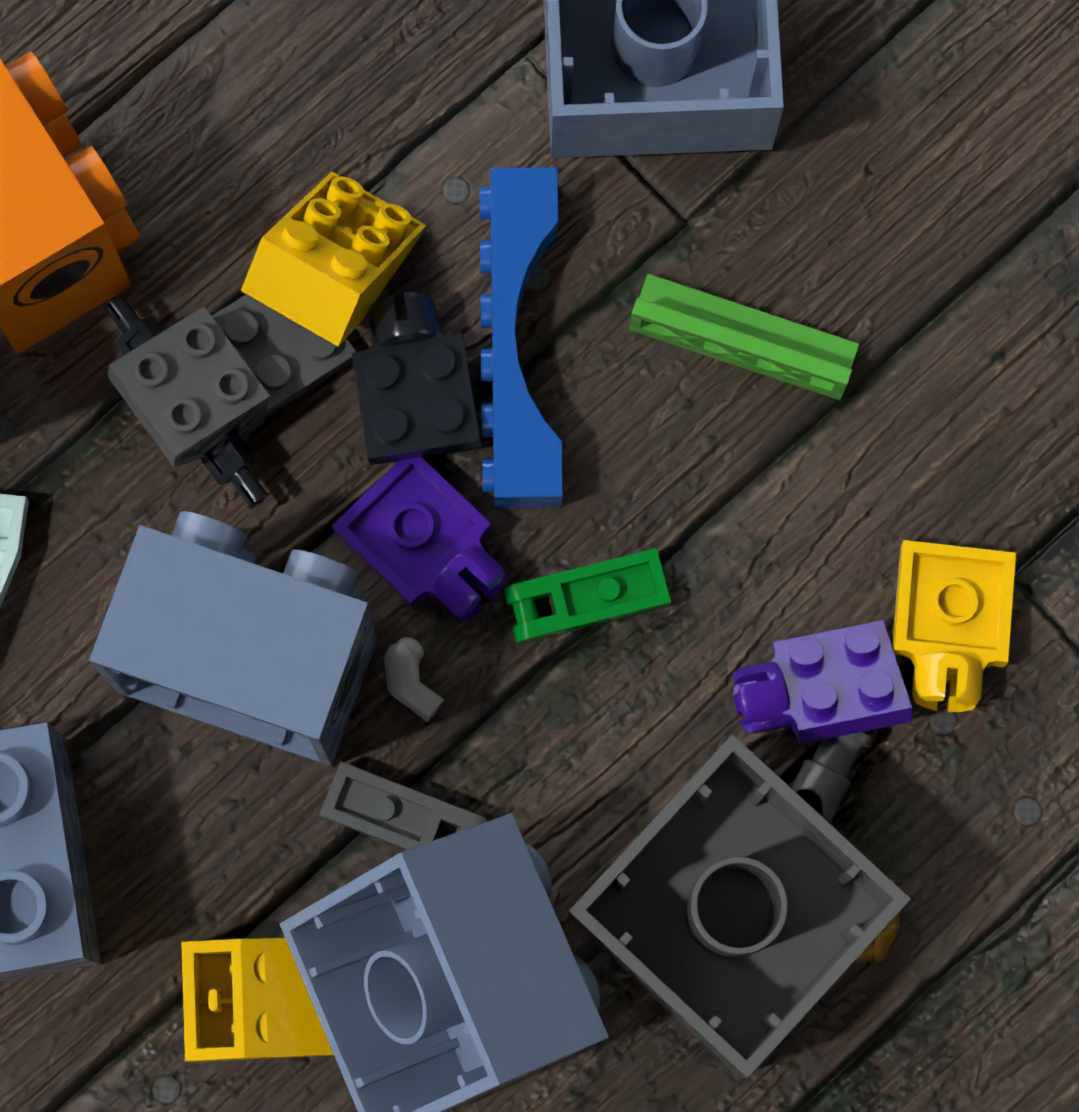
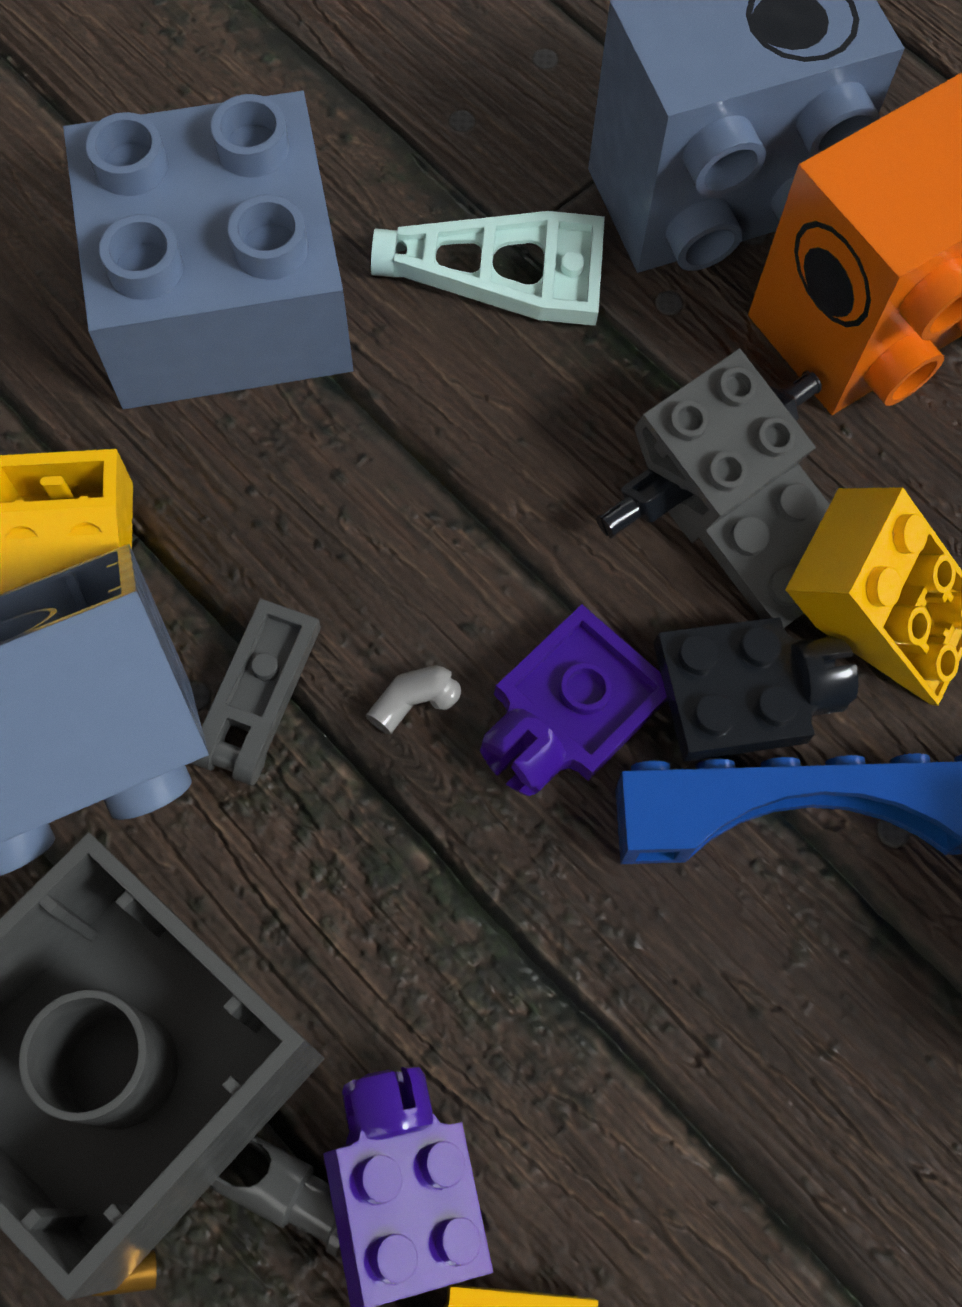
camera: 90 degrees right, 10 degrees down
(238, 641) = (433, 473): sand blue brick -> none
(589, 595) = (514, 895): green plate -> none
(743, 336) = (848, 1085): bright green fence -> none

